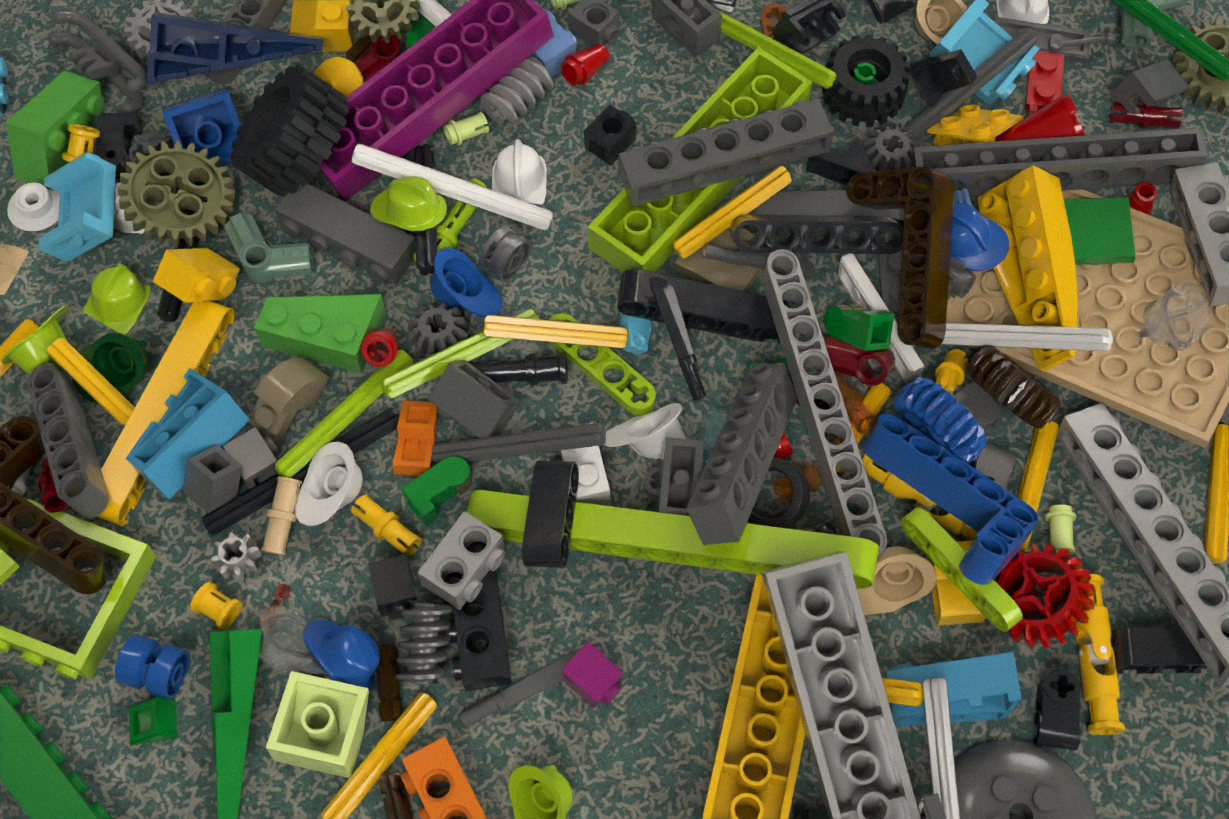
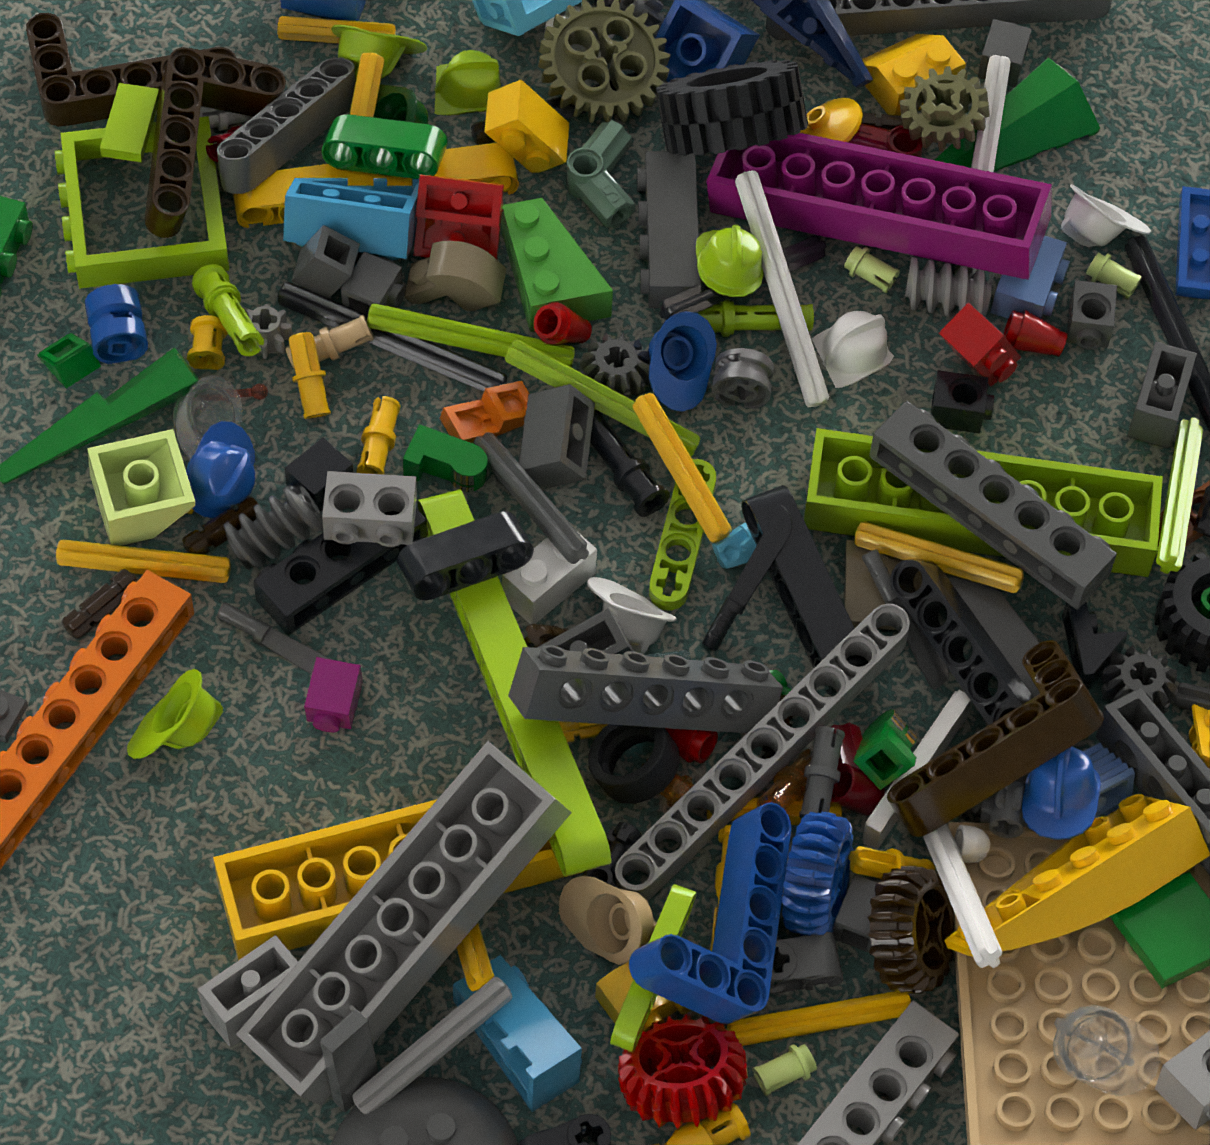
camera: 55 degrees right, 5 degrees down
(143, 380) = (384, 146): none -> green beam
(191, 573) = (223, 301): none -> lime pin
(241, 361) = (458, 212): none -> red slope
(301, 545) = (308, 375): none -> yellow axle
(329, 484) = (386, 366): white piece -> none
(584, 93) = (980, 345): none -> red brick
(640, 496) = (540, 634): none -> dark brown axle
(861, 377) = (822, 771): none -> dark grey pin
(964, 312) = (972, 843): none -> white hinge

